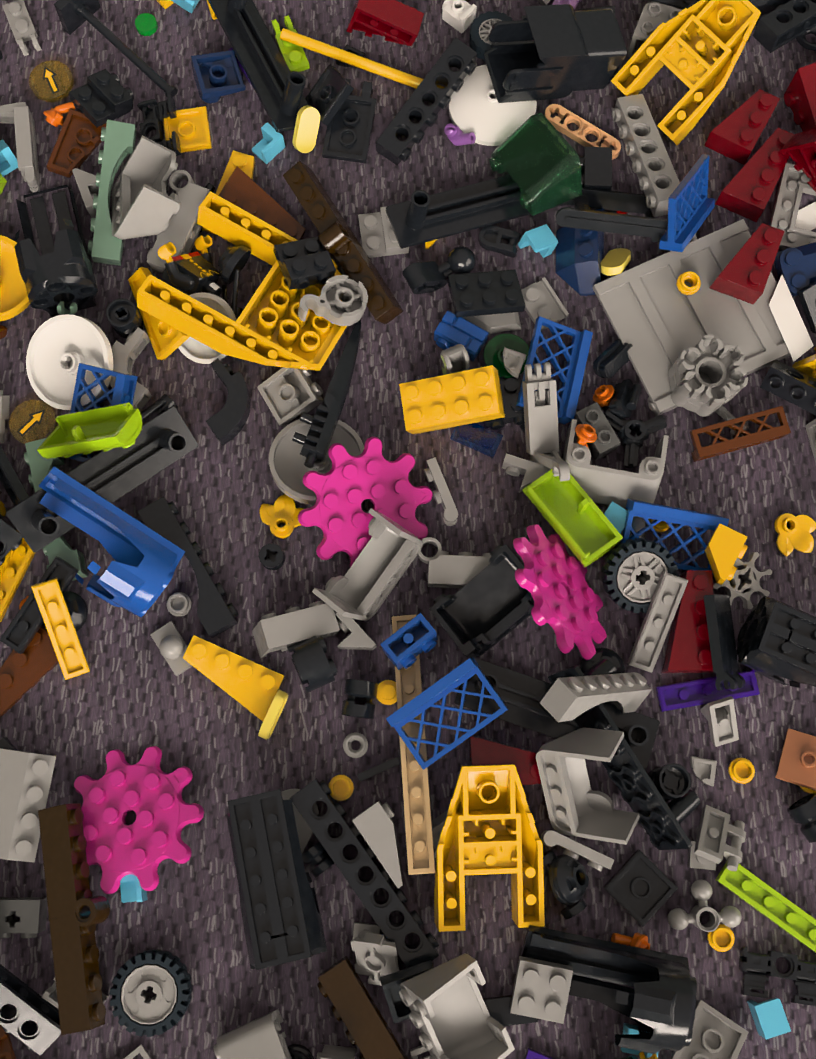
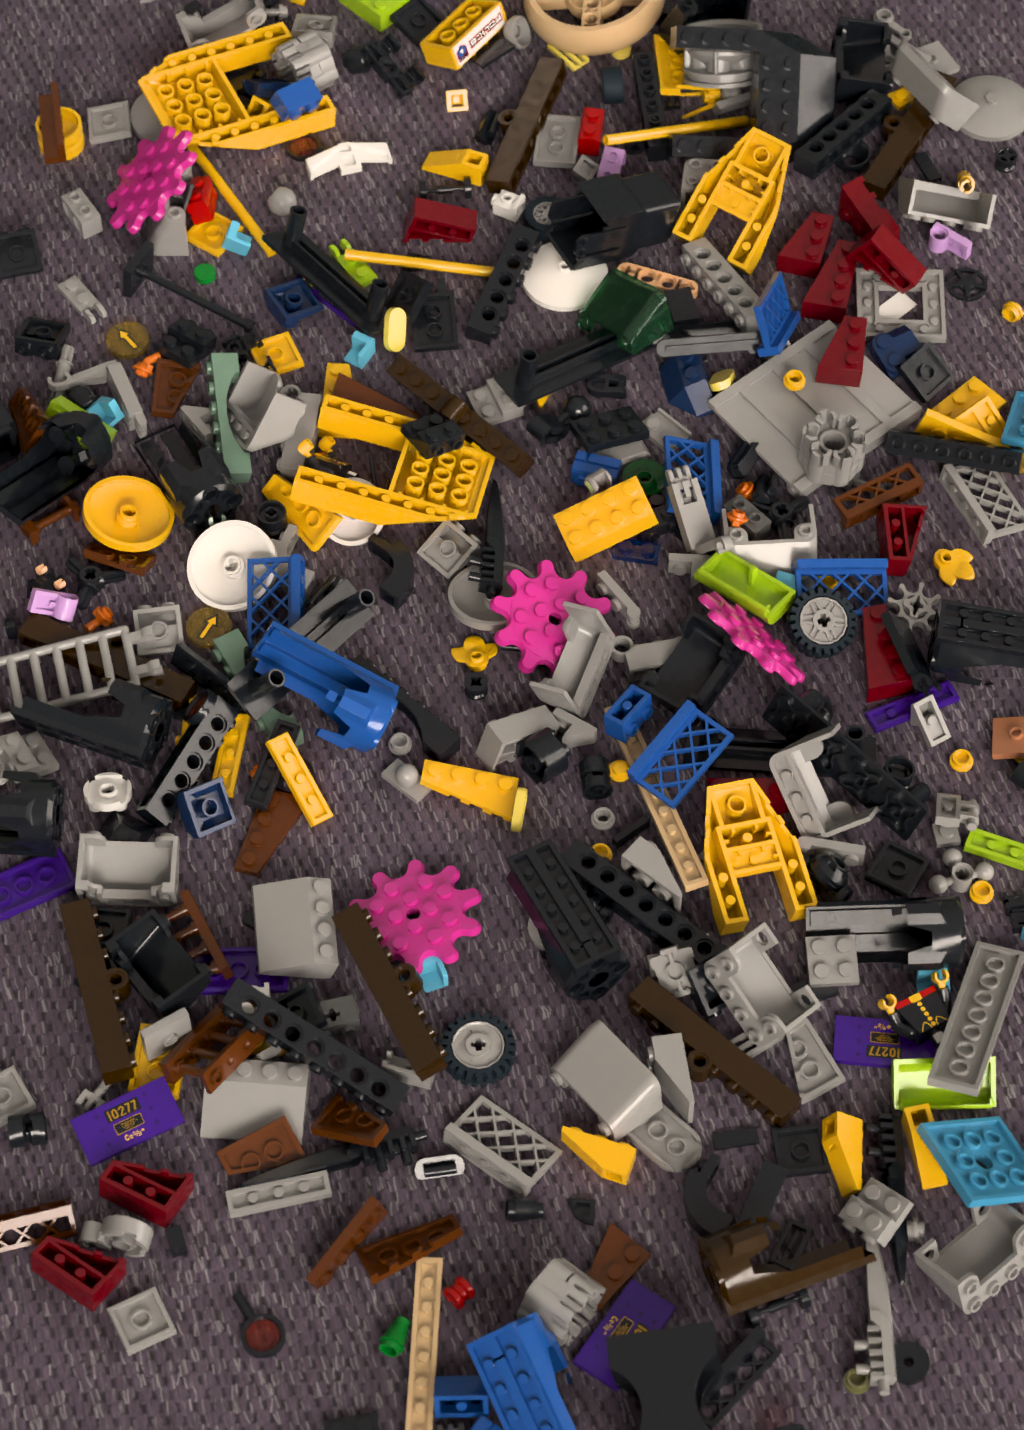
camera: 15 degrees left, 20 degrees down
(93, 431) = (282, 606): lime container -> none
(233, 259) = (360, 452): black piece -> none
(329, 303) = (475, 458): light grey piece -> none
(457, 136) = (541, 309): medium lavender arm -> none
(513, 361) = (652, 479): light grey tile -> none
(540, 239) = (646, 375): medium azure panel -> none
(575, 695) = (790, 691): light grey arch -> none
(657, 621) = (848, 656): light grey tile -> none
(704, 769) = (927, 767): light grey tile -> none
(723, 550) = (889, 583): yellow slope -> none
(747, 489) = (898, 535): none -> dark red wedge
(789, 321) = (896, 394): white sticker -> none

